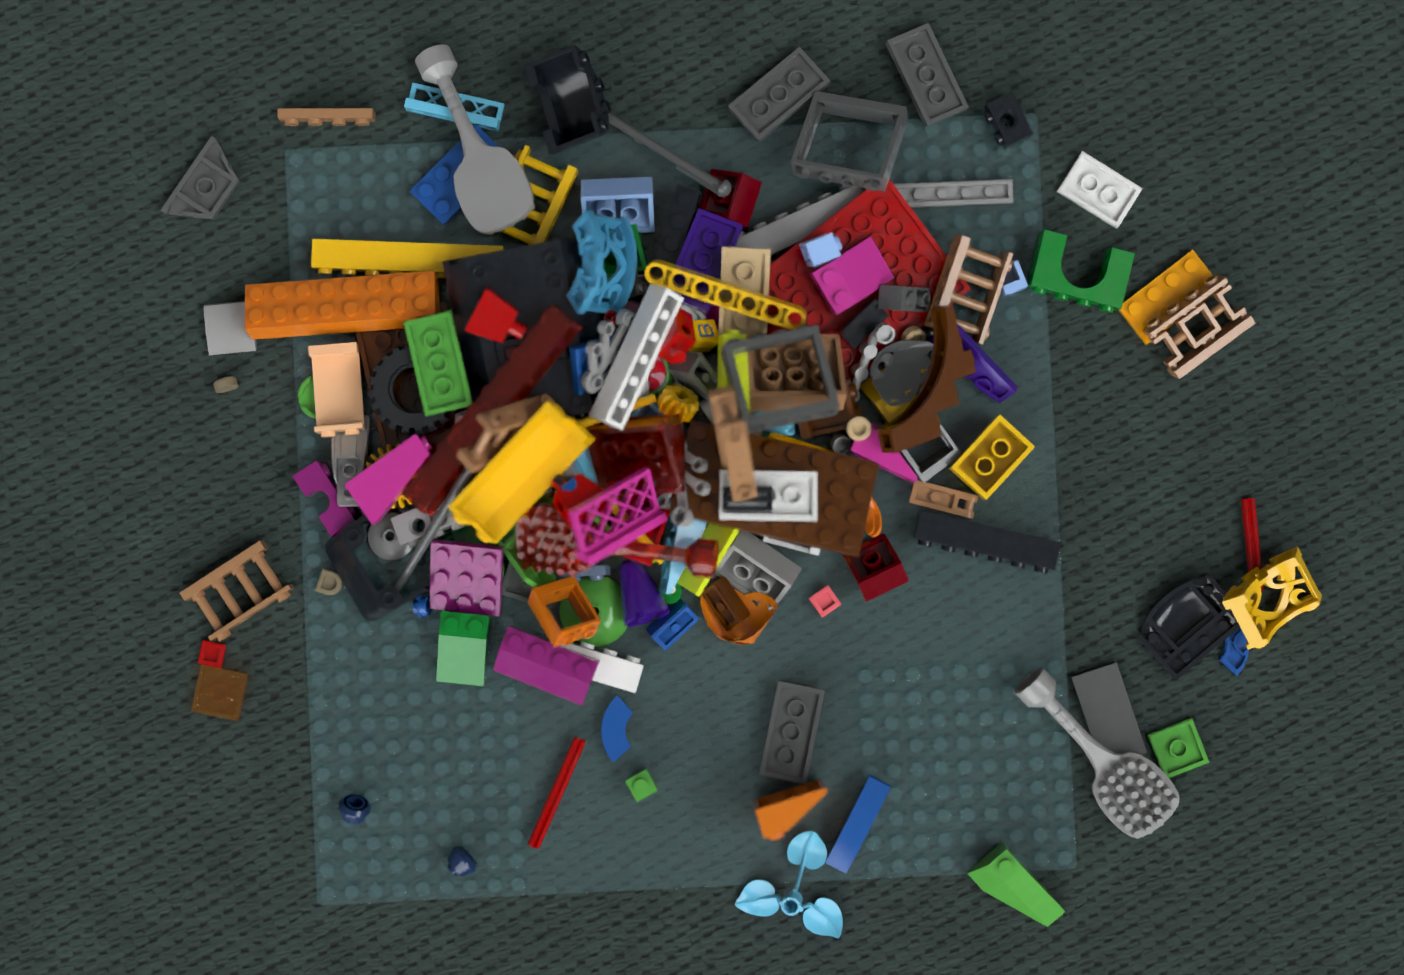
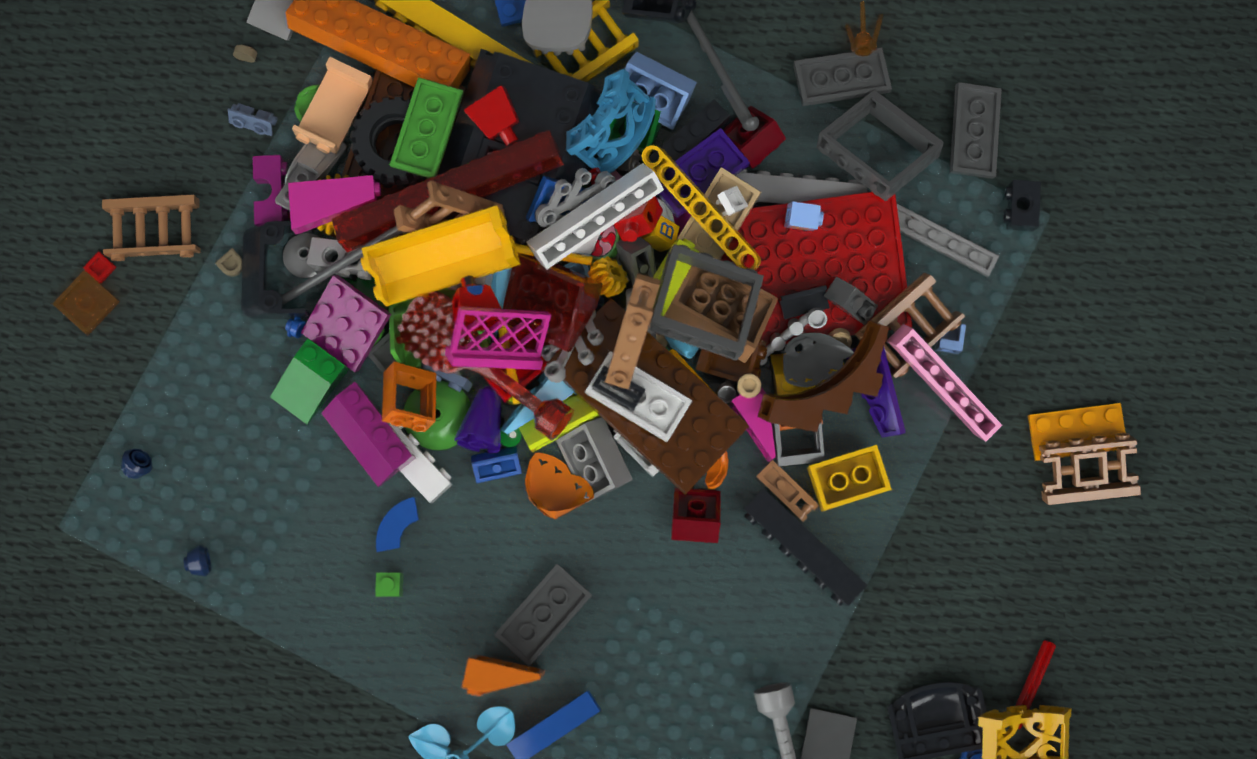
camera: 25 degrees right, 5 degrees down
(257, 443) = (242, 117): none -> sand blue hinge
(556, 792) = (314, 550): red axle -> none
(725, 603) = (551, 472): reddish brown slope -> none
(750, 273) = (732, 201): none -> white tile
(781, 53) = (864, 44): none -> clear orange plant
(824, 601) = (636, 519): coral tile -> none
(851, 276) = (816, 255): dark pink slope -> none
(1028, 324) = (944, 382): none -> bright pink brick
(1047, 275) = (983, 355): green arch -> none
(1099, 190) = (1068, 308): white tile -> none

